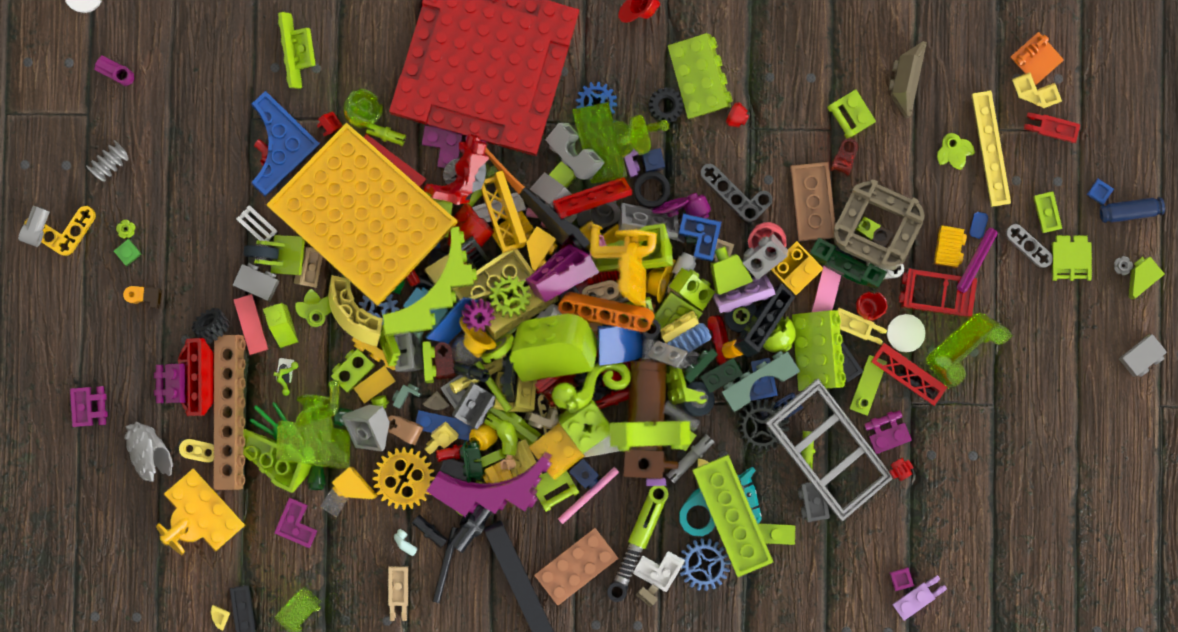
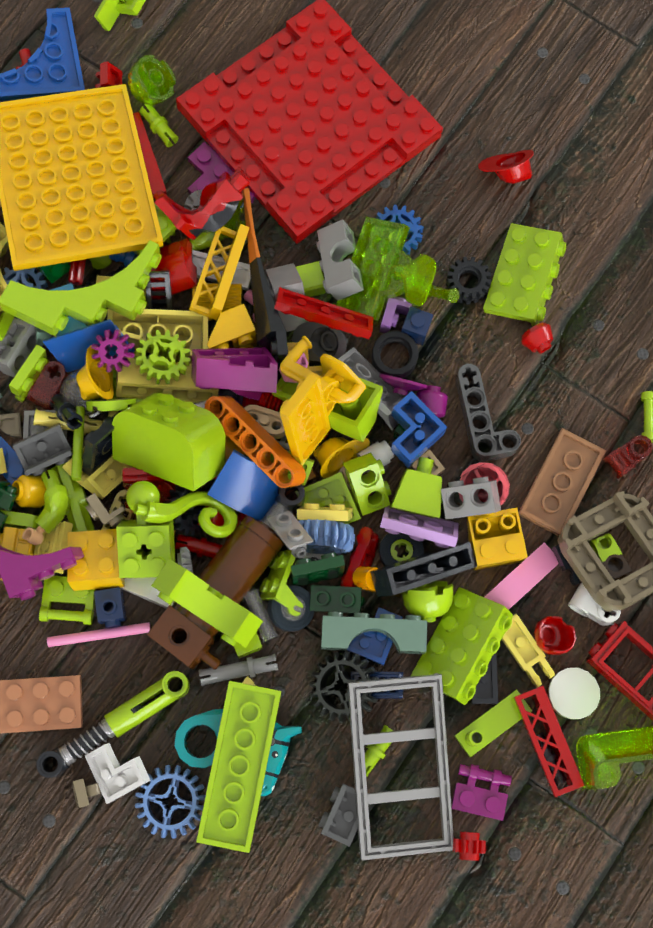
camera: 30 degrees right, 10 degrees down
(612, 415) = (184, 559): none -> light grey gear
(655, 482) = (182, 669): medium lavender tile -> none
(778, 533) = (278, 823): lime tile -> none
(847, 266) = (554, 573): dark green slope -> none

